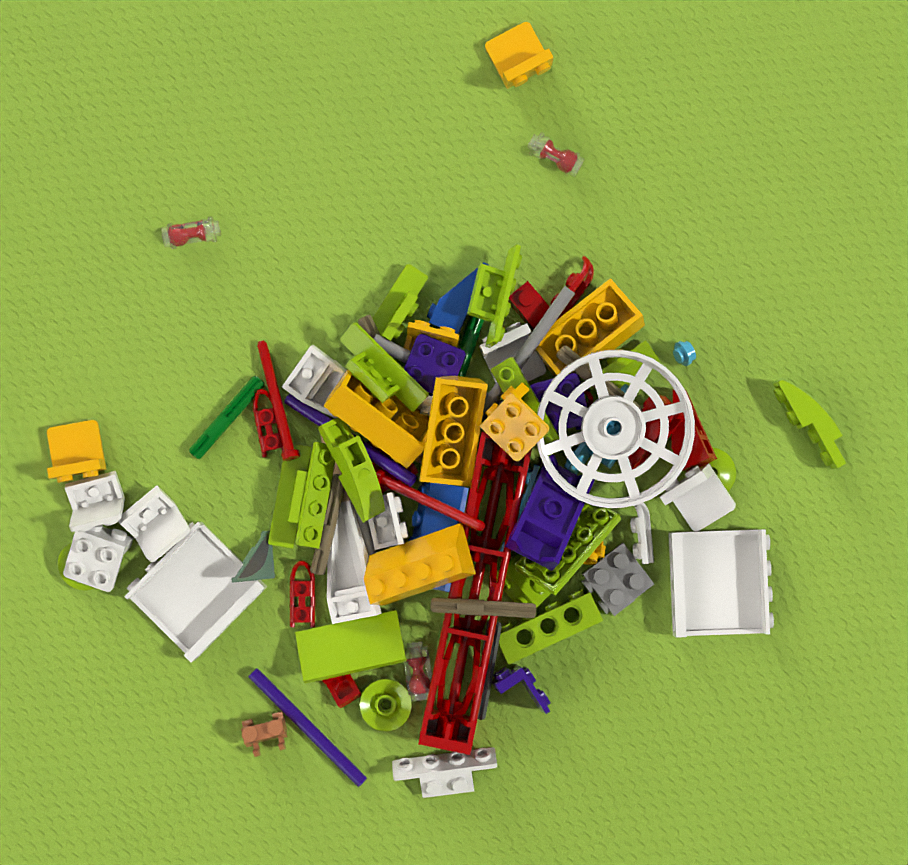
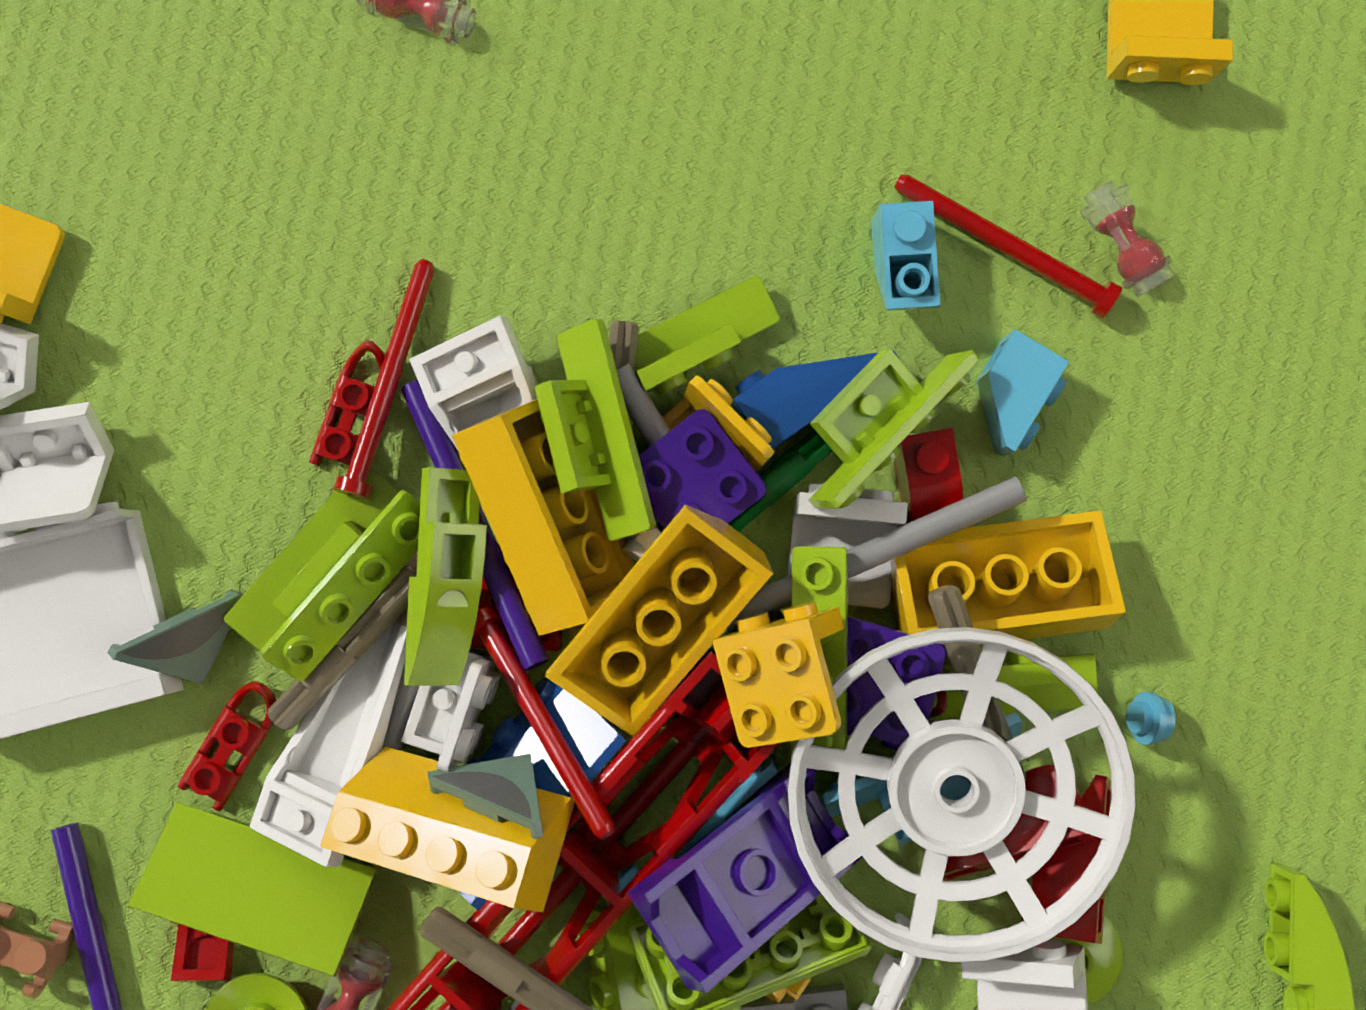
camera: 30 degrees right, 0 degrees up
(226, 417) = (286, 357): green axle -> none
(426, 537) = (495, 789): none -> sand green tile
(466, 219) = (906, 255): none -> medium azure slope
(507, 186) = (1100, 296): none -> red bar
(545, 244) = (1015, 388): none -> medium azure slope
(576, 283) = (1037, 482): red piece -> none

